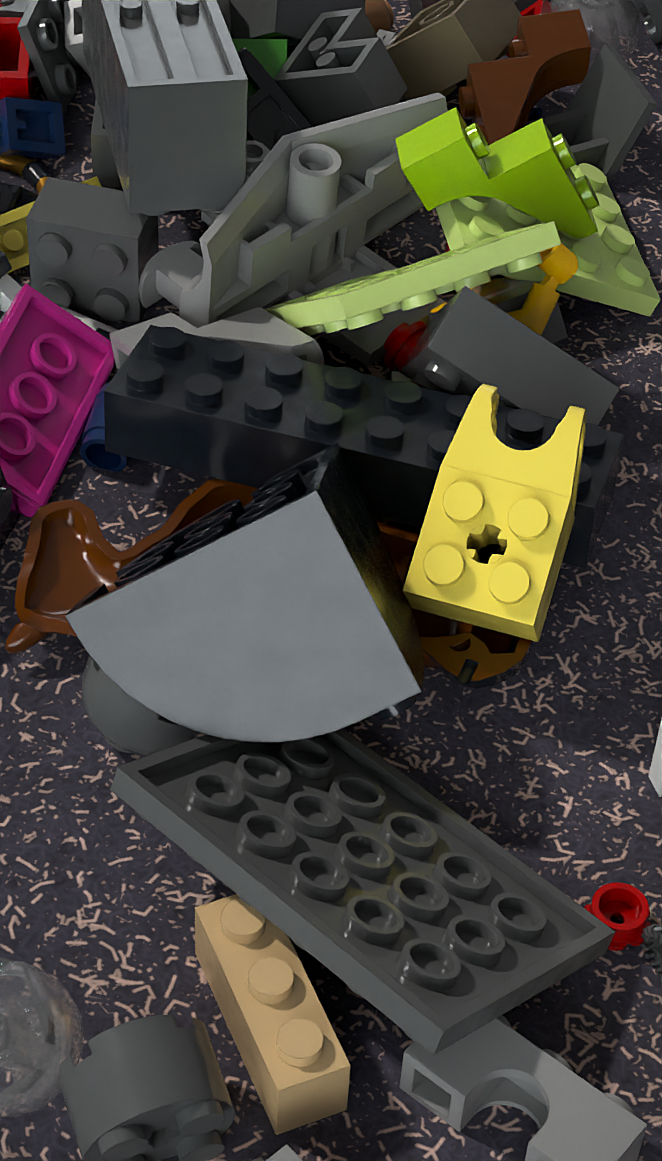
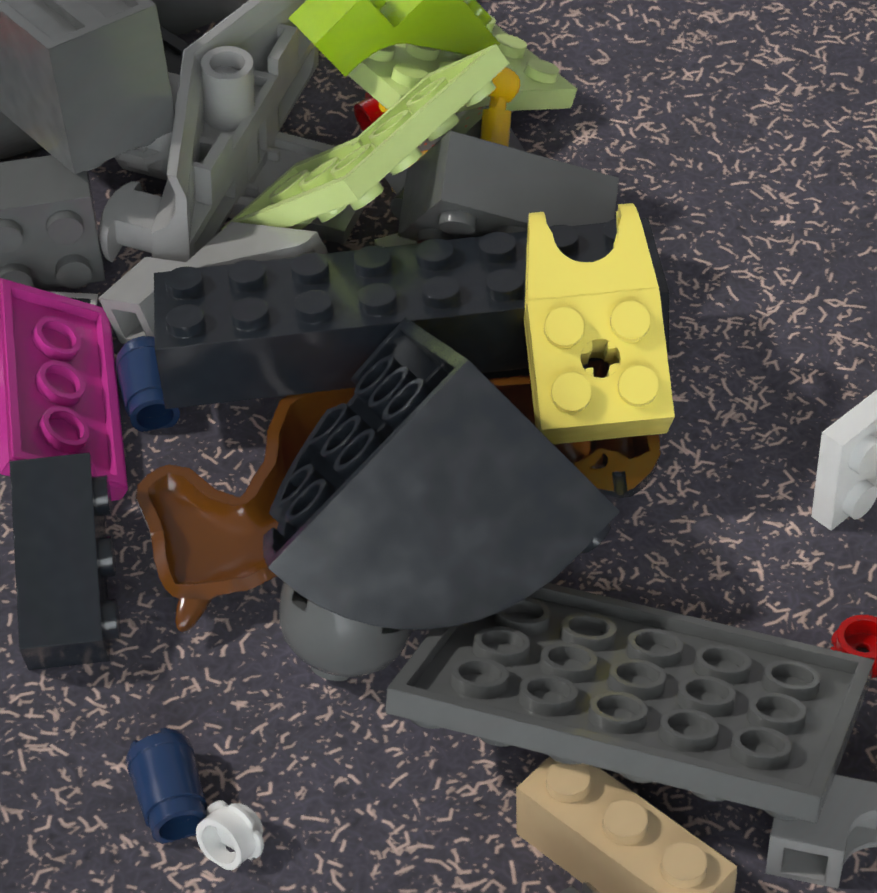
camera: 20 degrees left, 0 degrees up
(401, 343) = (376, 215): red plate -> none

